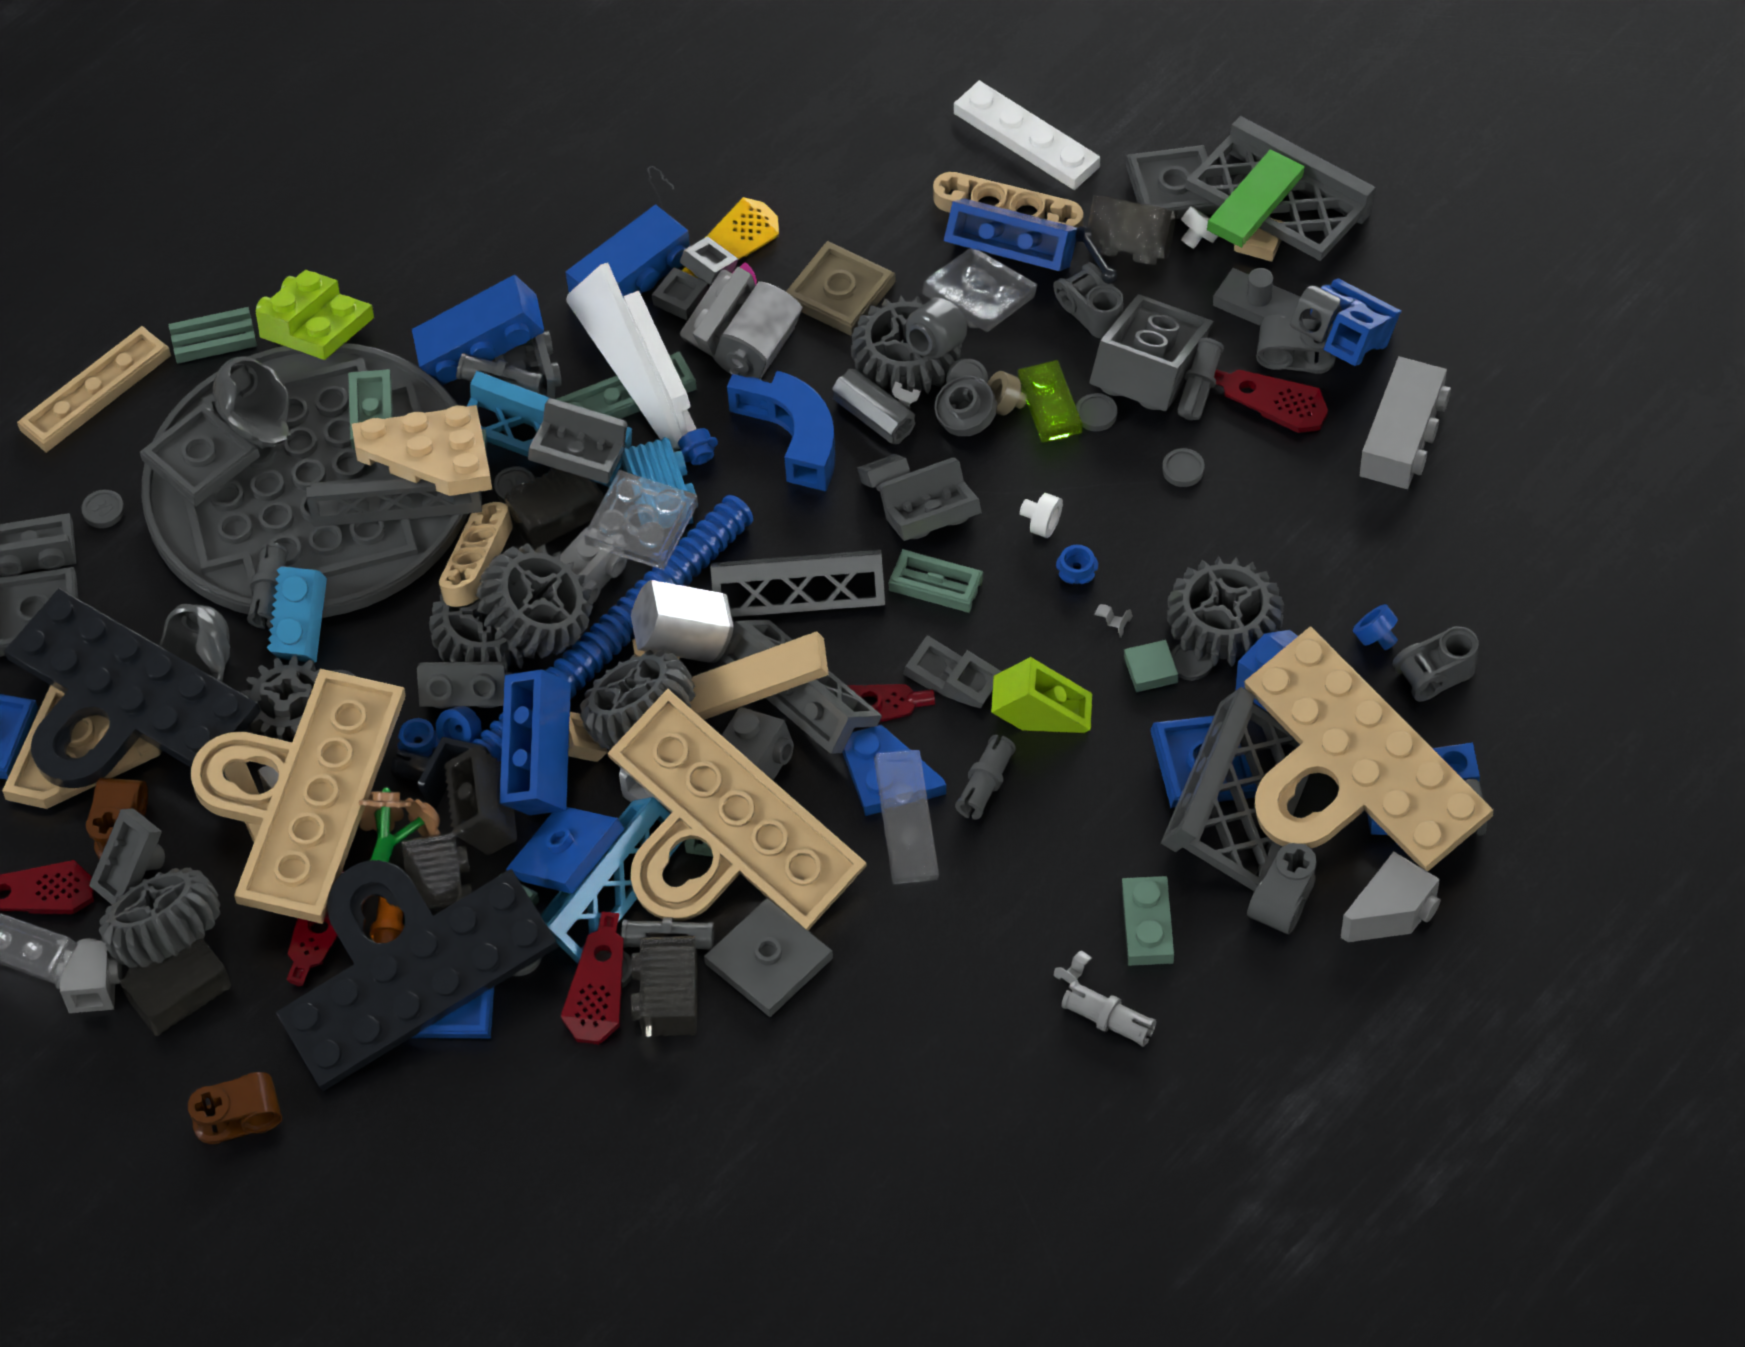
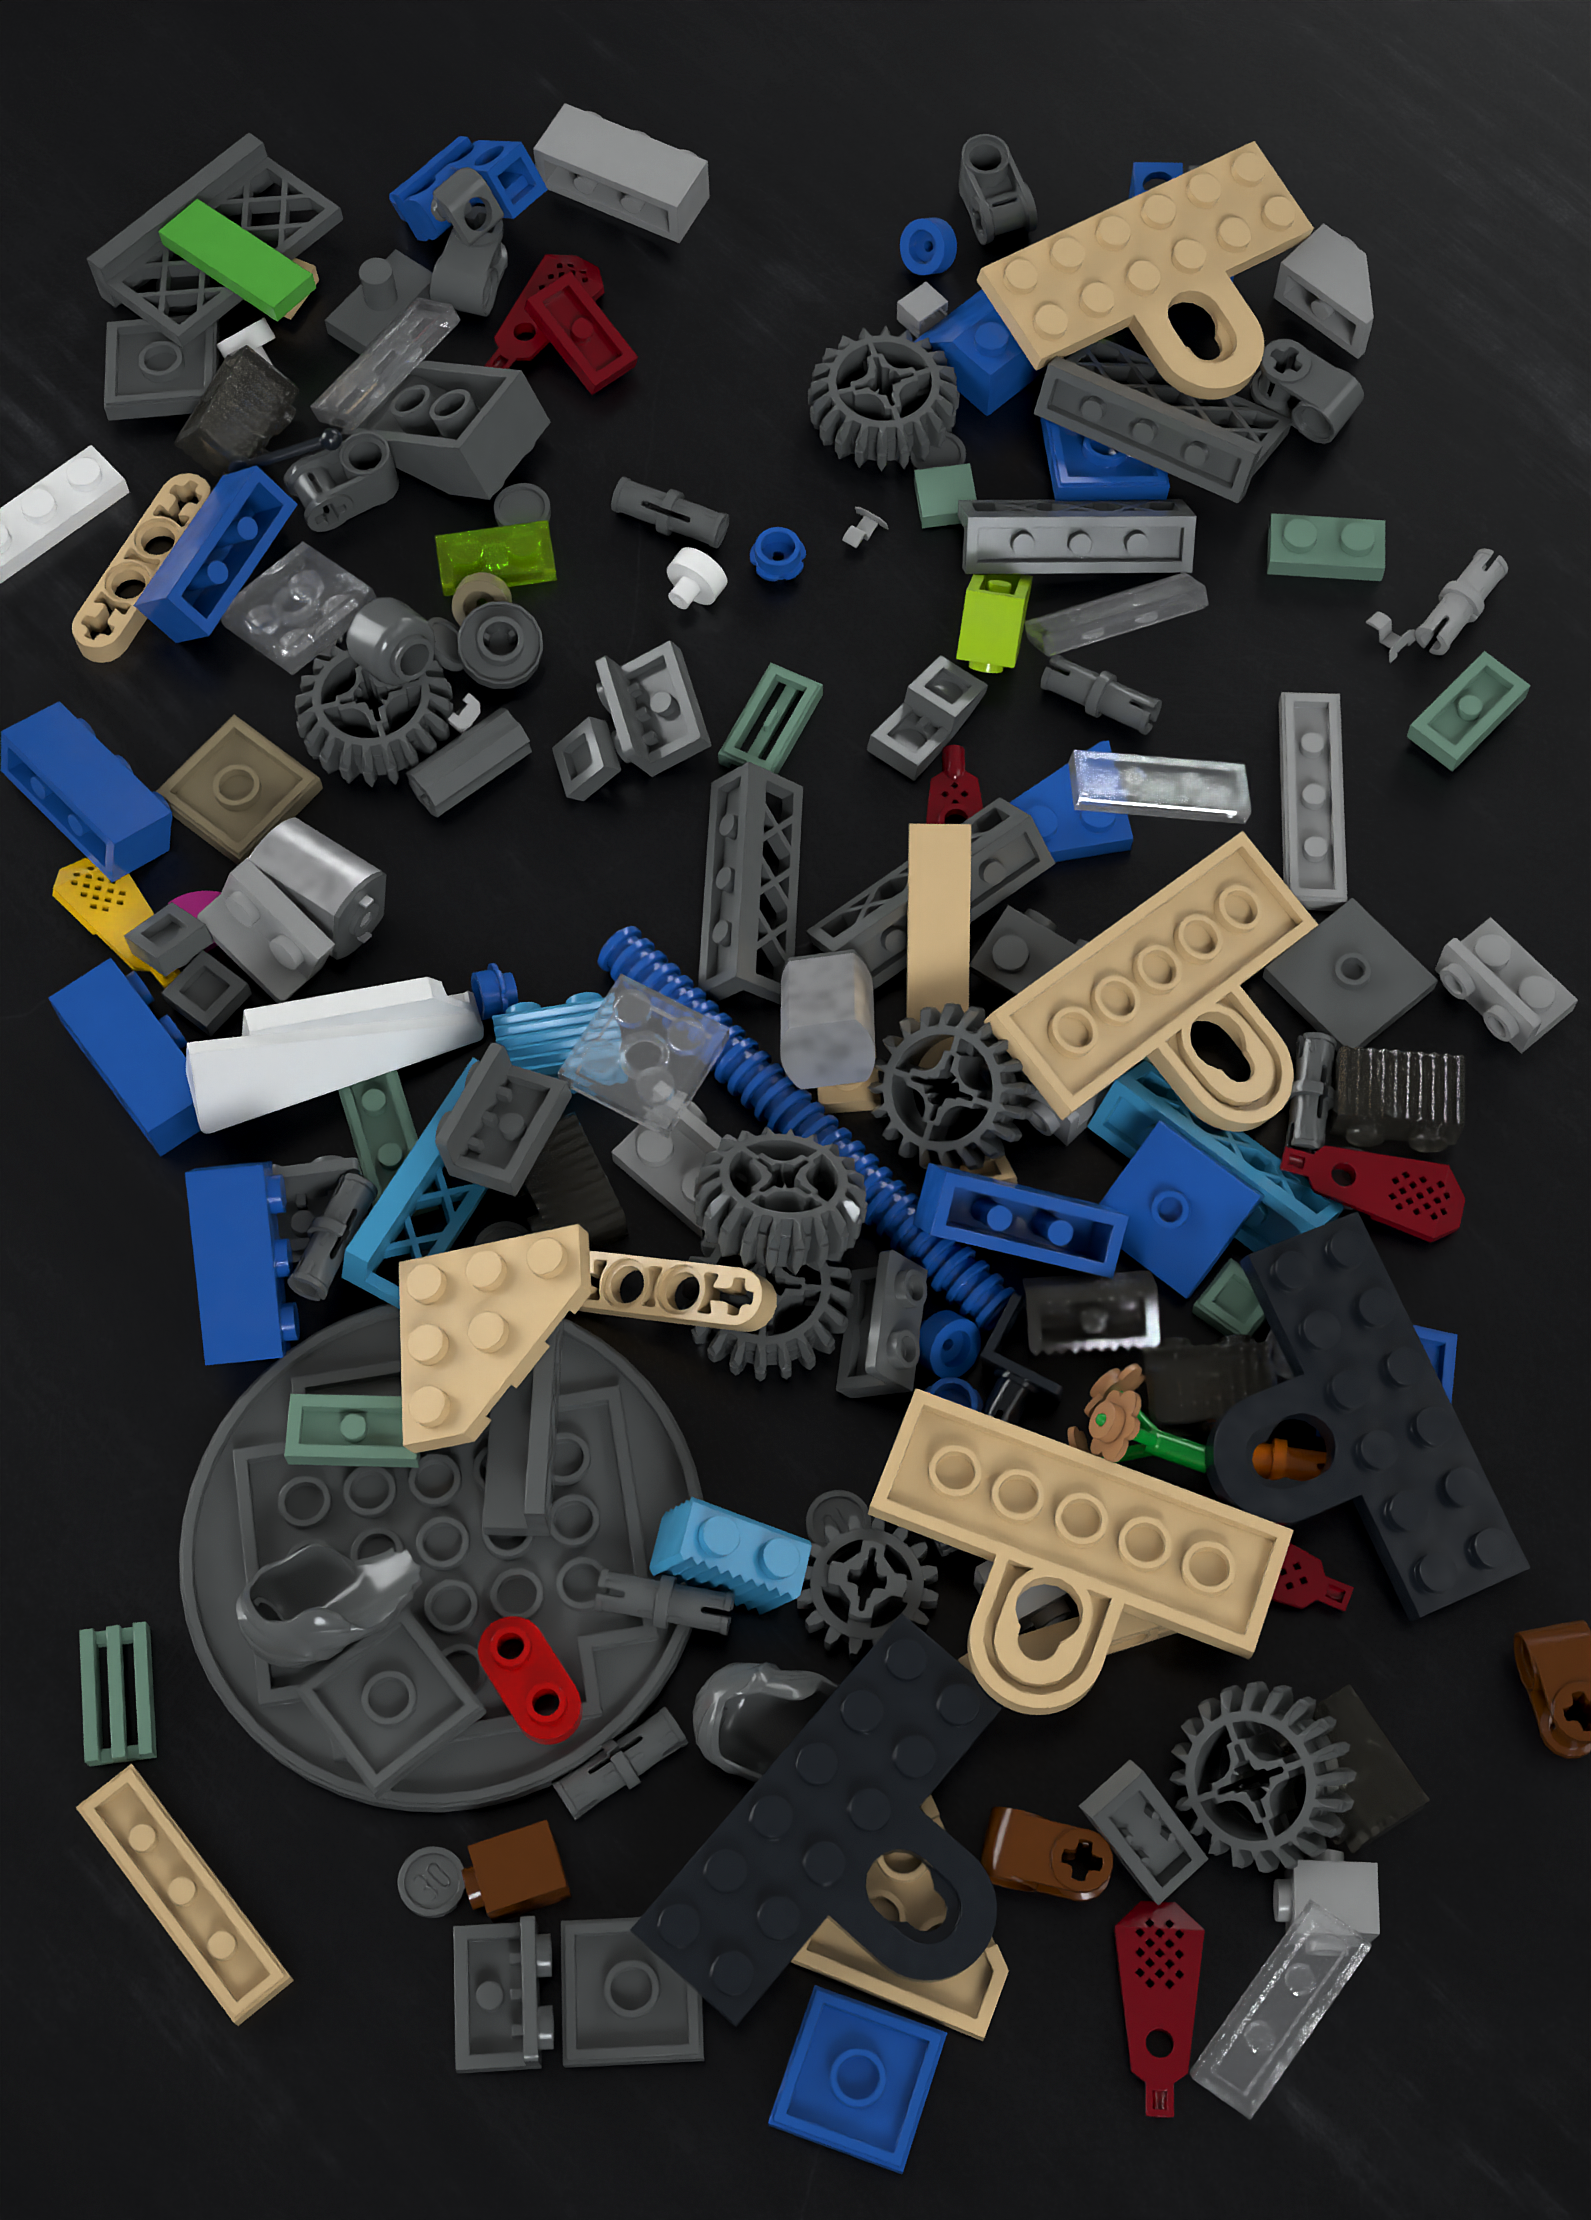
camera: 85 degrees left, 10 degrees up
(103, 543) = (516, 1873): none -> reddish brown brick
(170, 585) = (620, 1763): none -> dark grey pin
(219, 525) = (528, 1678): none -> red plate
(311, 315) = (133, 1522): lime plate -> none
(771, 1055) = (1504, 985): none -> light grey bracket
(799, 411) = (481, 844): blue arch -> none
(818, 201) = (86, 791): none -> blue brick
(918, 925) = (1313, 799): none -> light grey tile
(1006, 1020) = (1468, 711): none -> sand green plate
(1056, 779) = (1116, 614): none -> clear tile
(1103, 496) = (704, 523): none -> dark grey pin
(1114, 743) = (1077, 536): none -> dark grey fence
(1183, 467) = (633, 424): dark grey piece -> none
(1200, 308) = (385, 363): none -> clear tile
(1200, 379) = (479, 354): dark grey axle -> none
(1245, 415) = (581, 332): none -> dark red plate
(1324, 627) = (921, 309): none -> light grey piece

